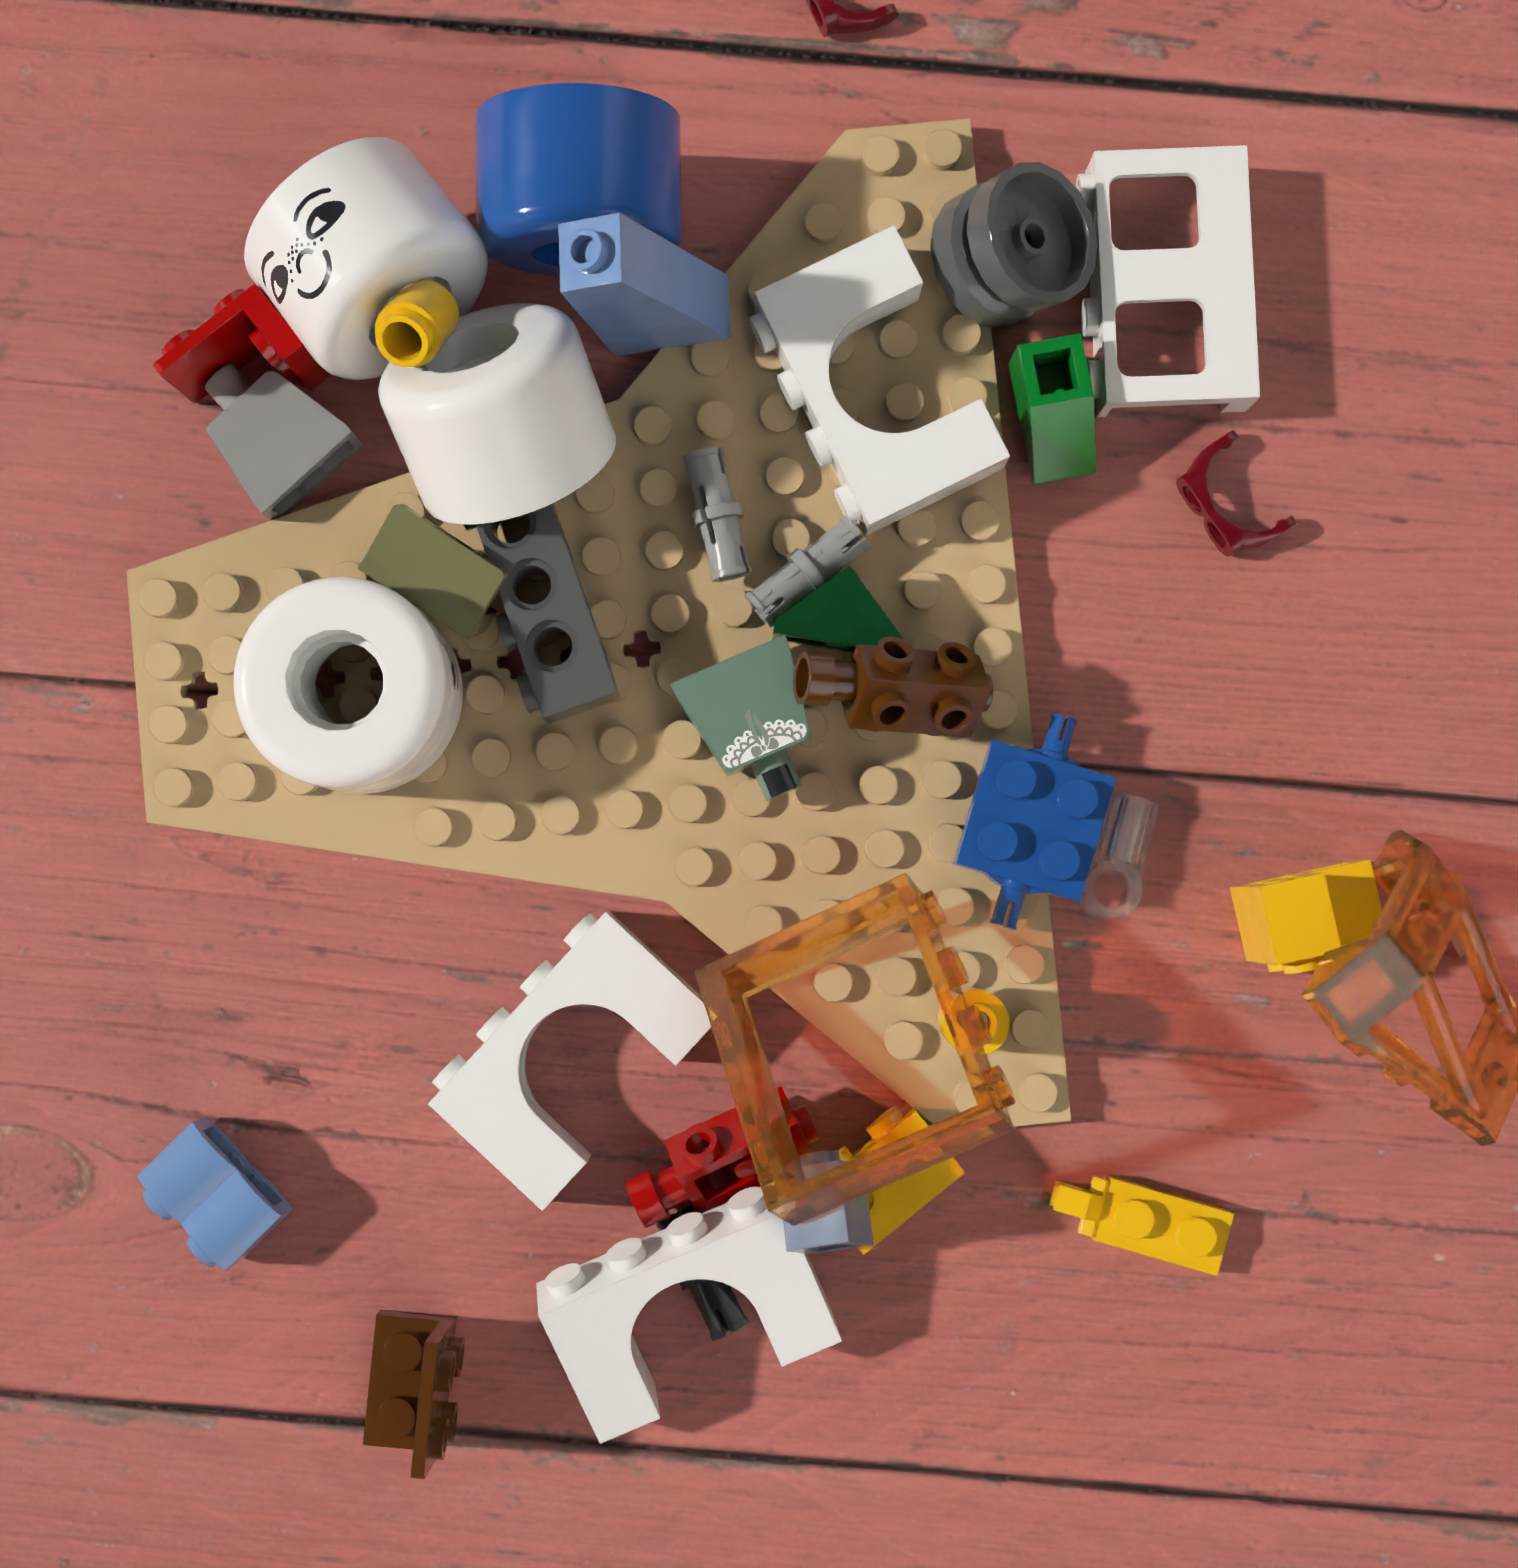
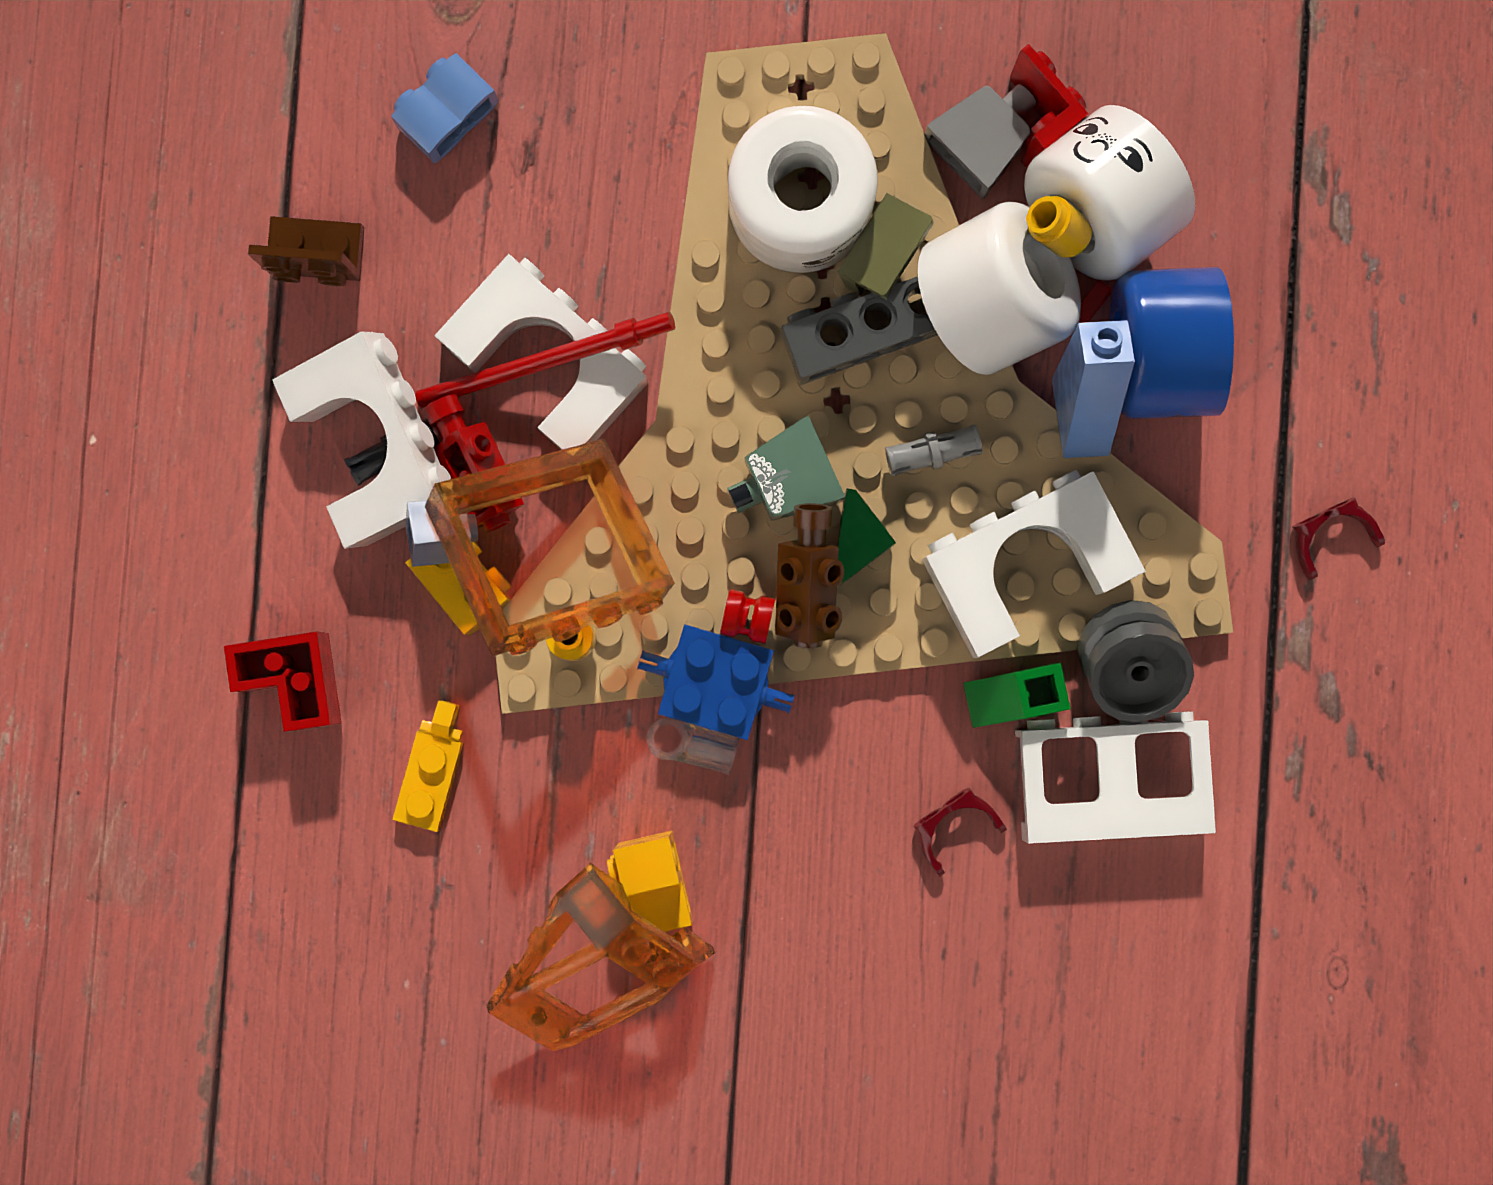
camera: 90 degrees right, 0 degrees up
(509, 289) = (1093, 301): none -> red tile
(550, 938) = (624, 335): none -> red bar
(807, 570) = (894, 516): light grey pin -> none
(943, 789) = (737, 612): none -> red wheel
(1012, 1405) = (299, 670): none -> red brick

